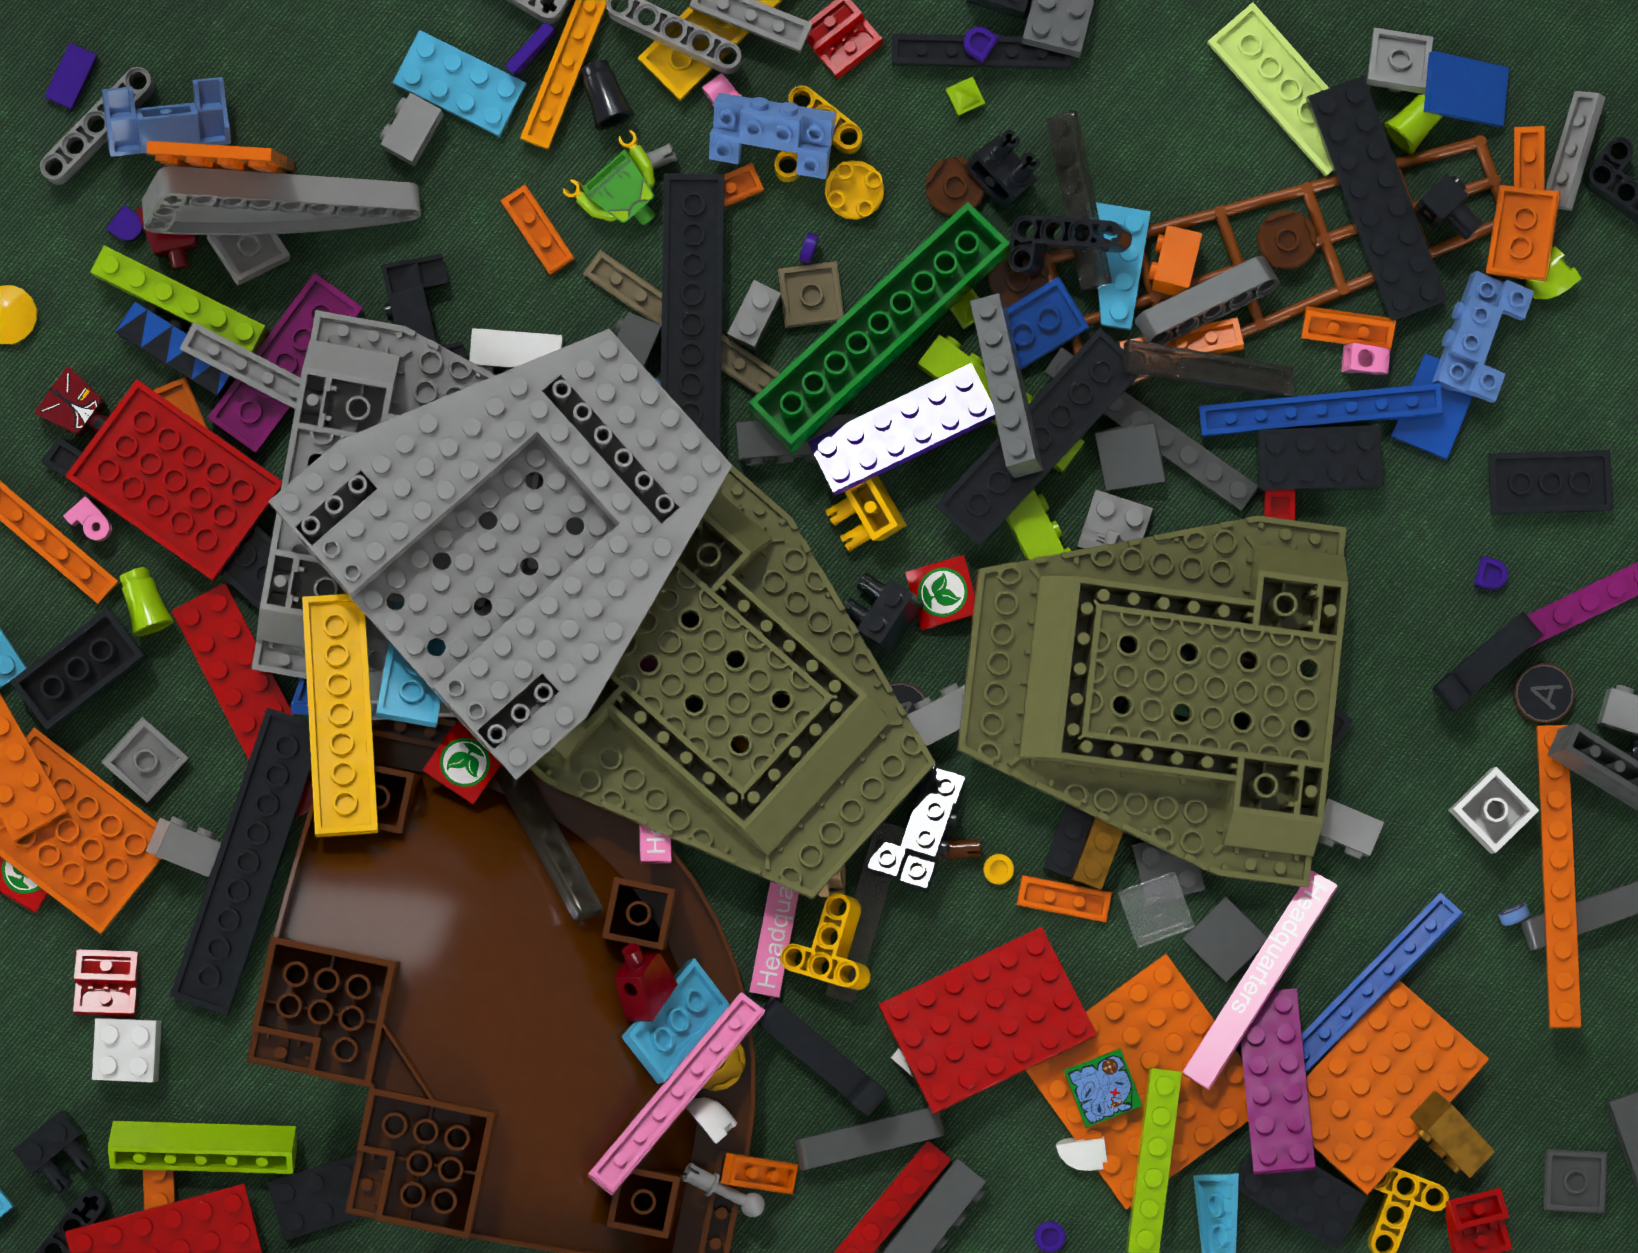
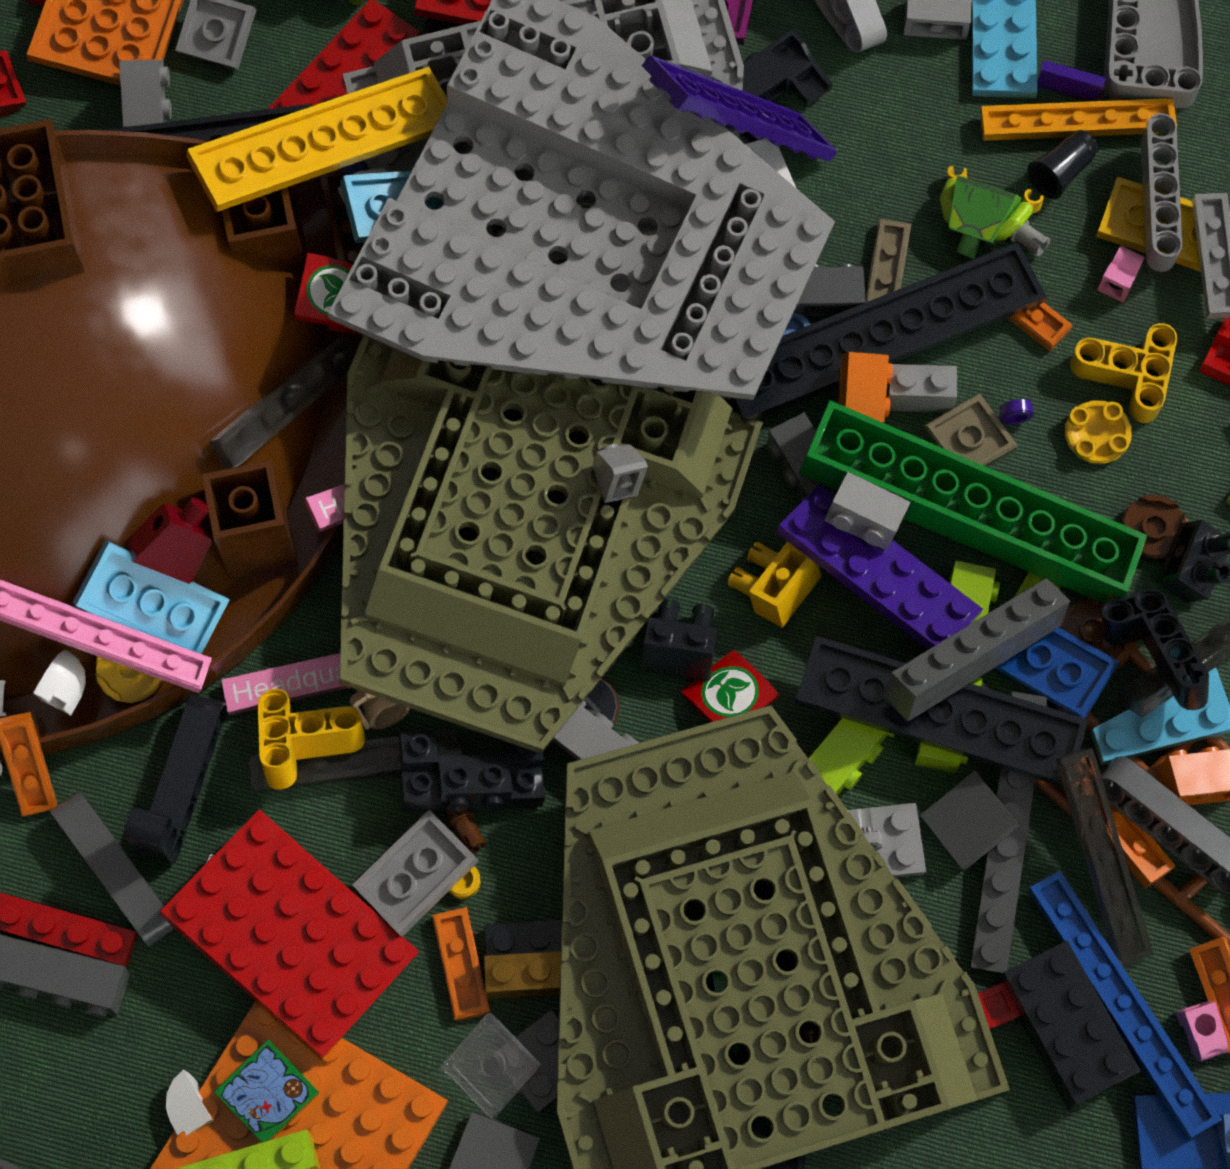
camera: 65 degrees right, 15 degrees down
(463, 355) = (737, 108): none -> dark purple plate
(537, 230) = (900, 163): orange tile -> none
(740, 365) = (865, 384): none -> orange brick
(741, 601) = (619, 471): none -> light grey slope
(772, 126) = (1121, 317): medium blue bracket -> none
(856, 417) = (867, 511): none -> light grey brick
(980, 903) = (415, 873): none -> light grey plate
(1049, 1236) = (80, 1111): dark purple tile -> none

